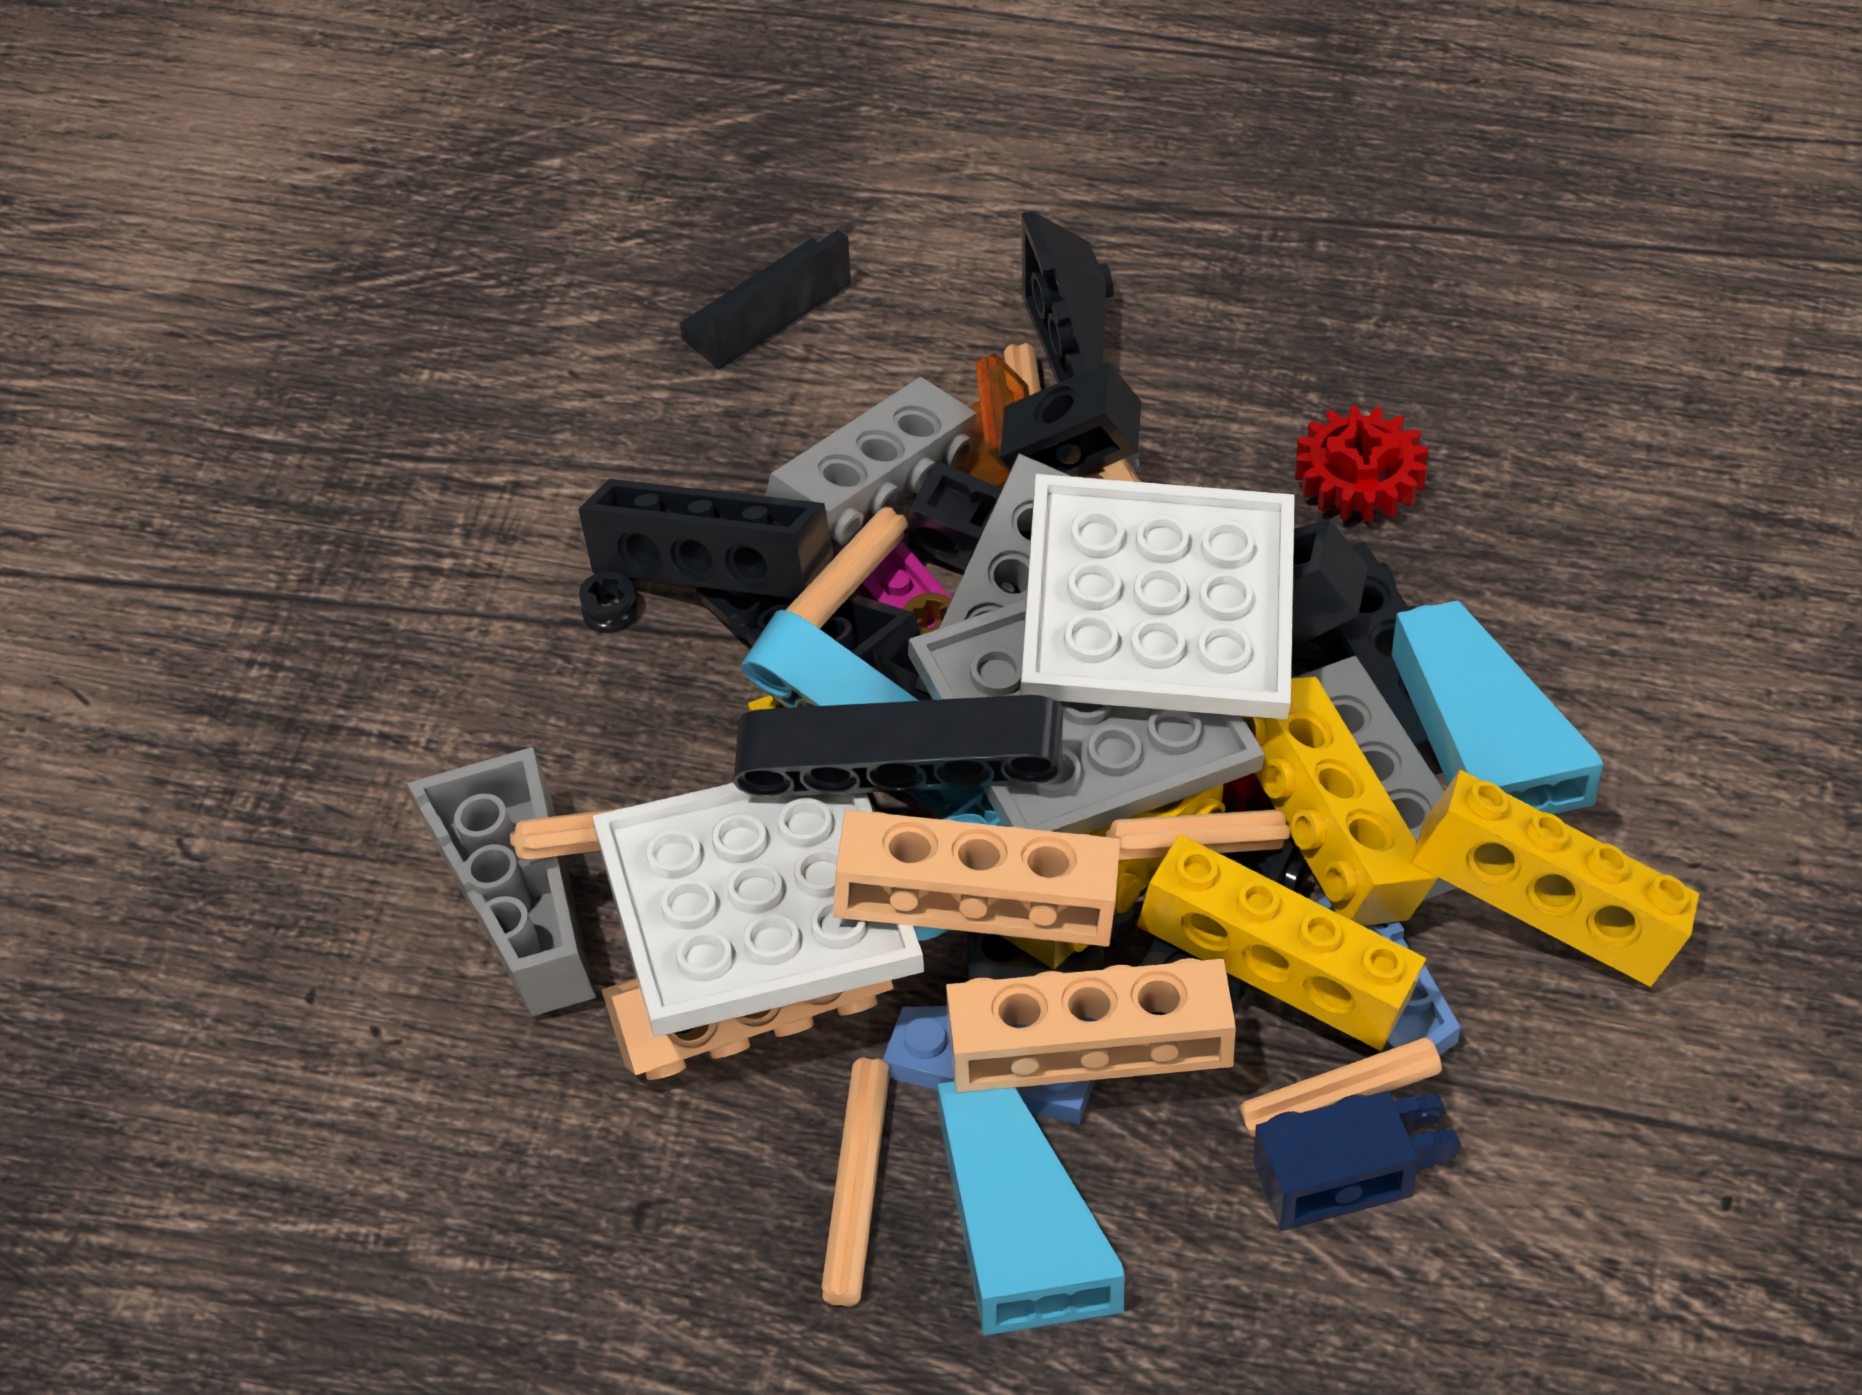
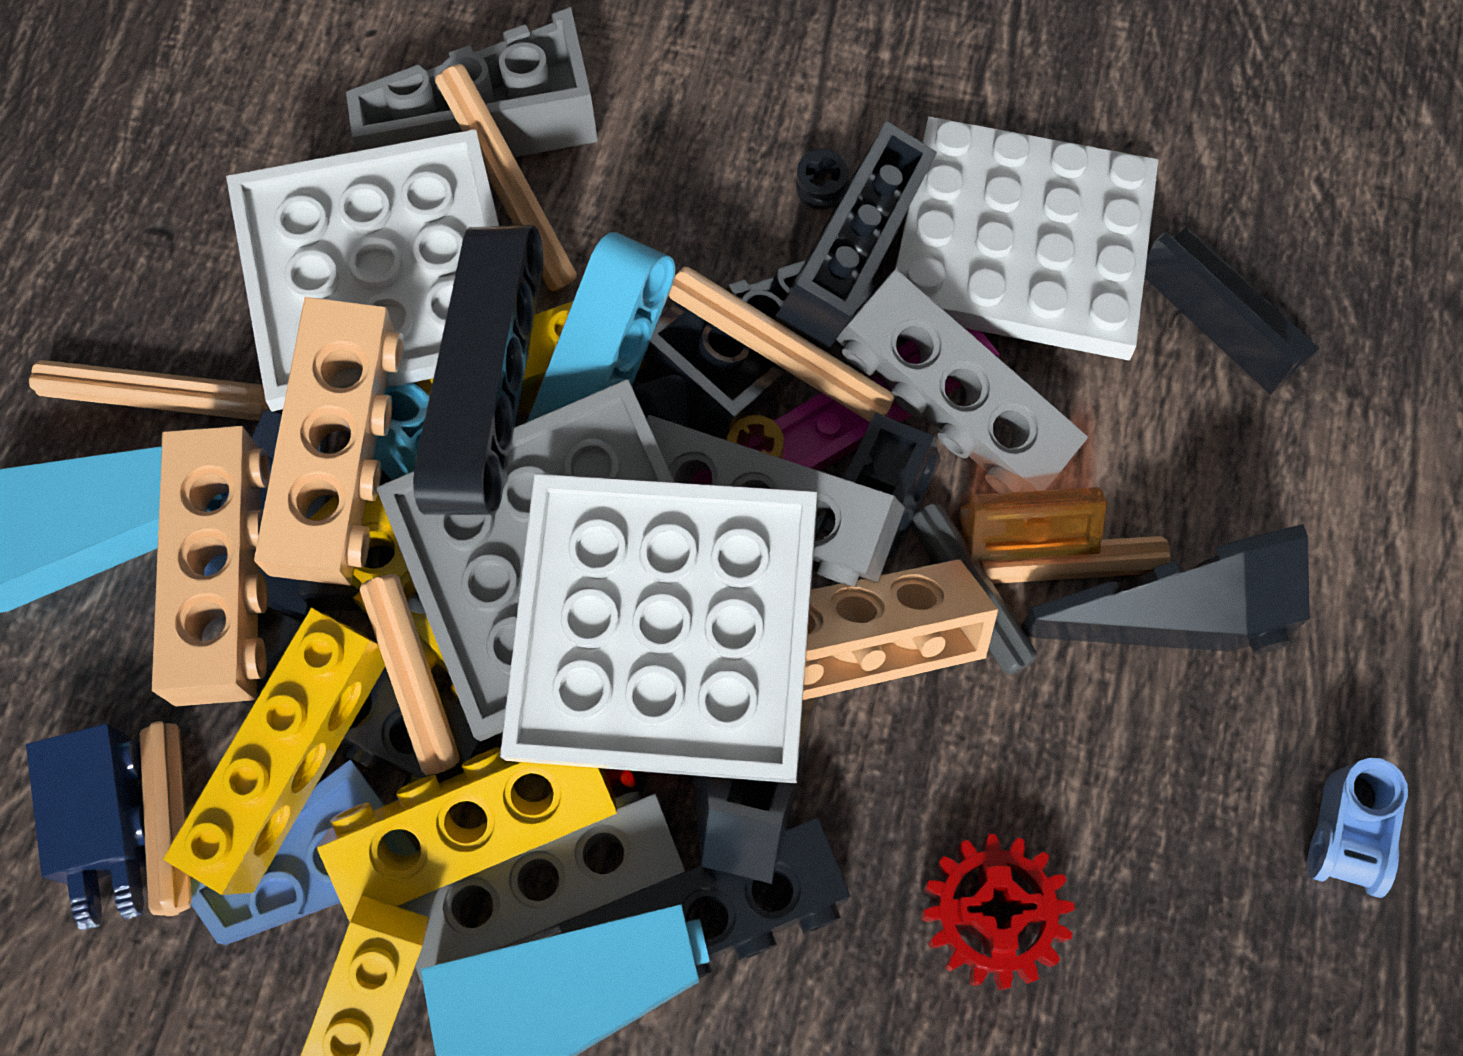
camera: 90 degrees right, 20 degrees up
(688, 418) = (1032, 237): none -> white plate
(1074, 423) = (982, 573): black brick -> none
(1255, 235) = (1356, 840): none -> light blue piece

